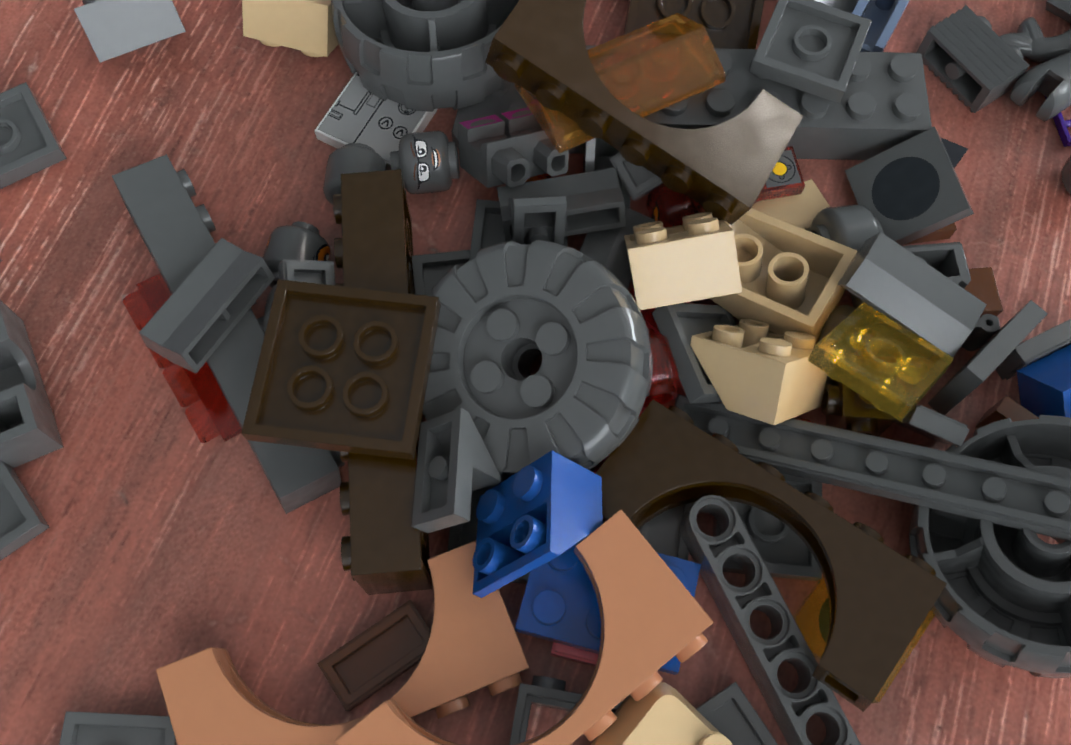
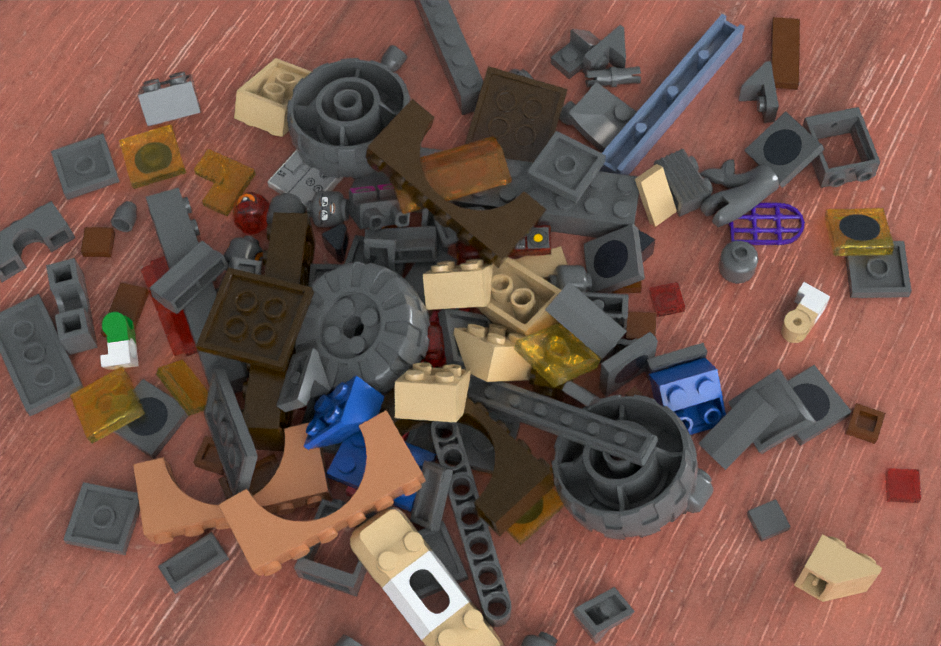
camera: 15 degrees right, 5 degrees down
(41, 263) = (97, 242): none -> reddish brown tile
(82, 215) = (124, 217): none -> dark grey hose
(92, 554) = (107, 404): none -> clear yellow plate
(100, 433) = (120, 342): none -> leg
(104, 379) = (129, 302): none -> reddish brown tile
(115, 112) = (152, 156): none -> clear yellow tile
(172, 566) = (157, 425): none -> dark grey tile
(231, 500) = (184, 386): none -> clear yellow tile
(250, 134) = (229, 180): none -> clear yellow tile
(296, 183) = (250, 213): none -> clear red head
(302, 617) = (208, 457): none -> reddish brown tile
(333, 590) = (230, 433): none -> dark grey tile
(448, 214) = (336, 242): none -> black slope
(692, 463) = (432, 393): none -> tan slope
(716, 669) = (432, 496): none -> dark grey tile
(947, 78) = (656, 195): none -> tan tile
(997, 243) = (667, 299): none -> clear red tile

